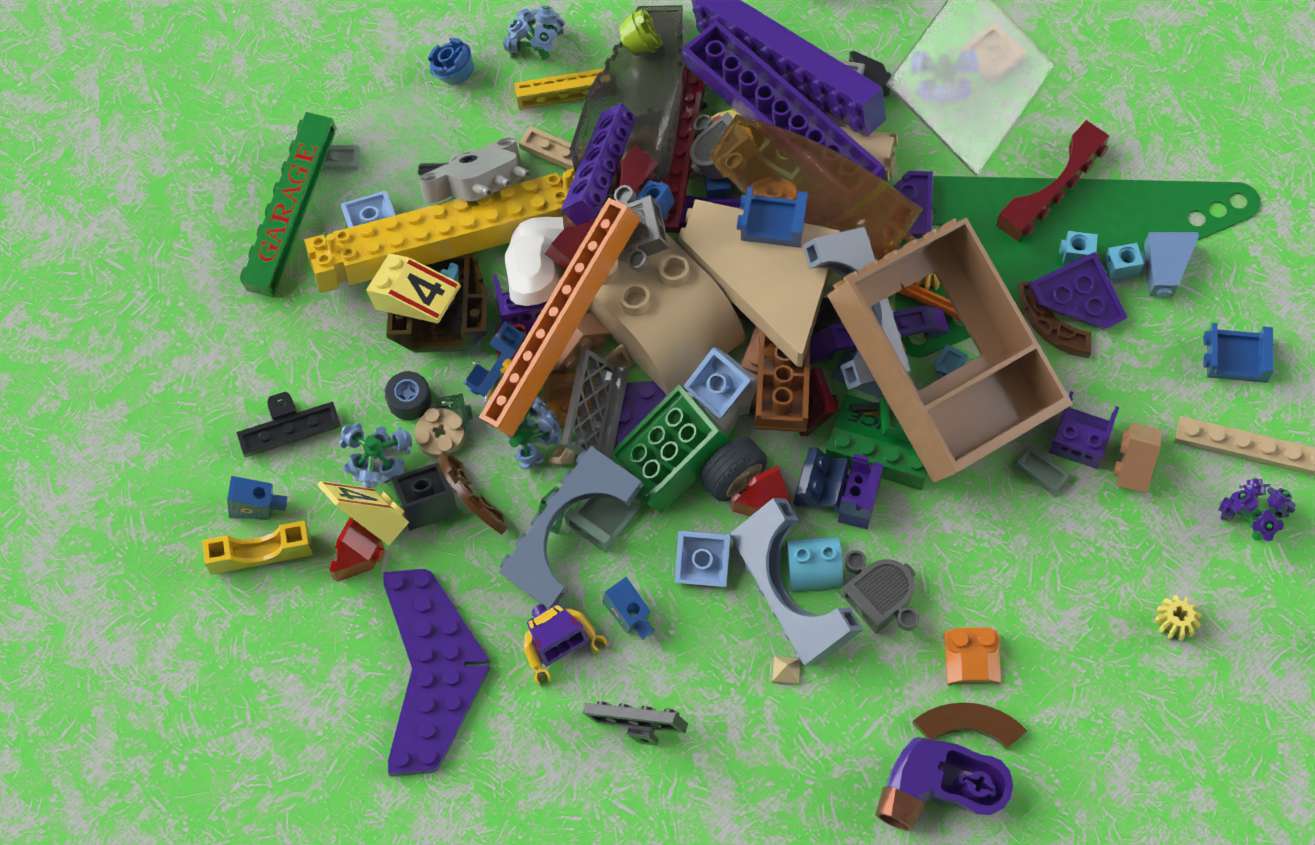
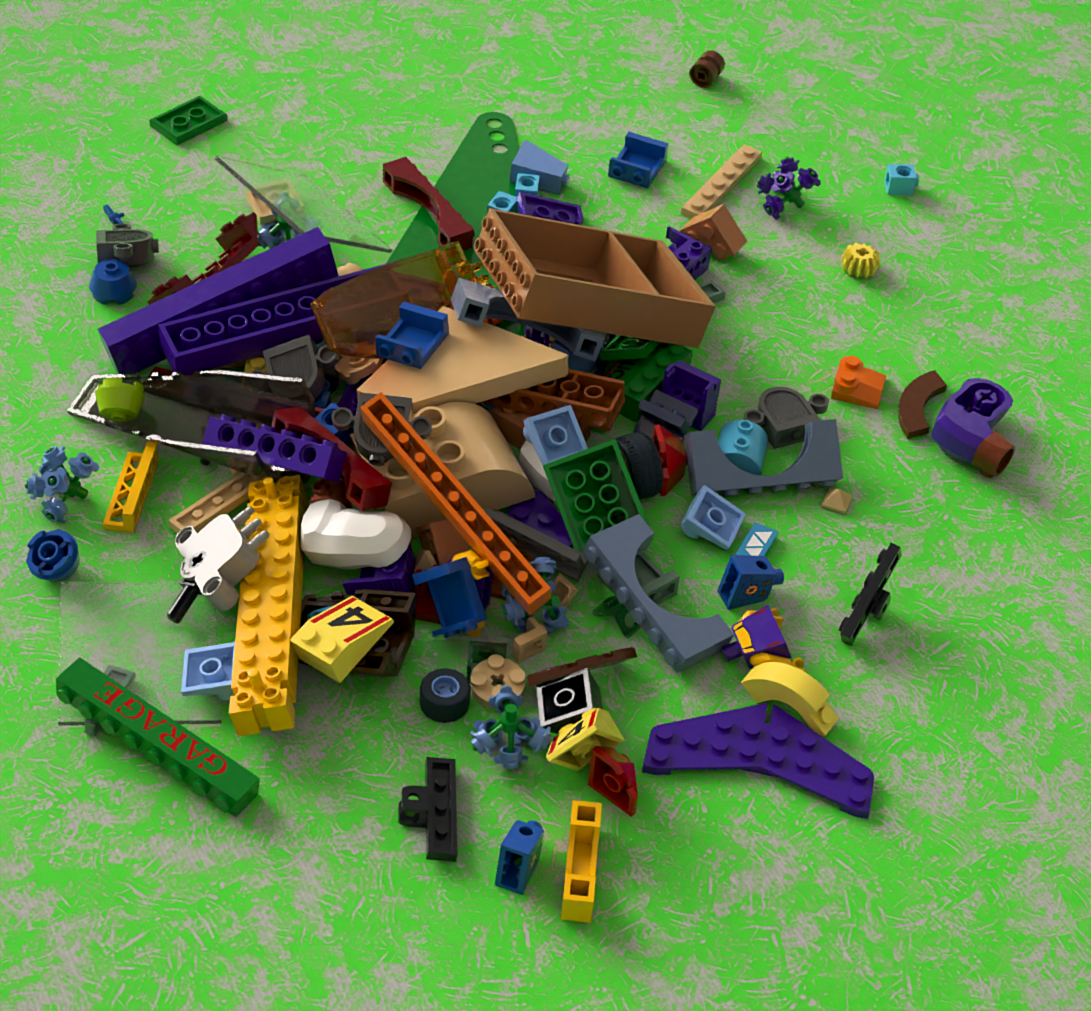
camera: 80 degrees left, 20 degrees down
(491, 444) = (530, 642): none -> tan bracket
(493, 675) = (794, 688): none -> light yellow arch
(690, 607) = (758, 541): none -> dark azure tile
(799, 20) = (236, 240): none -> dark red slope

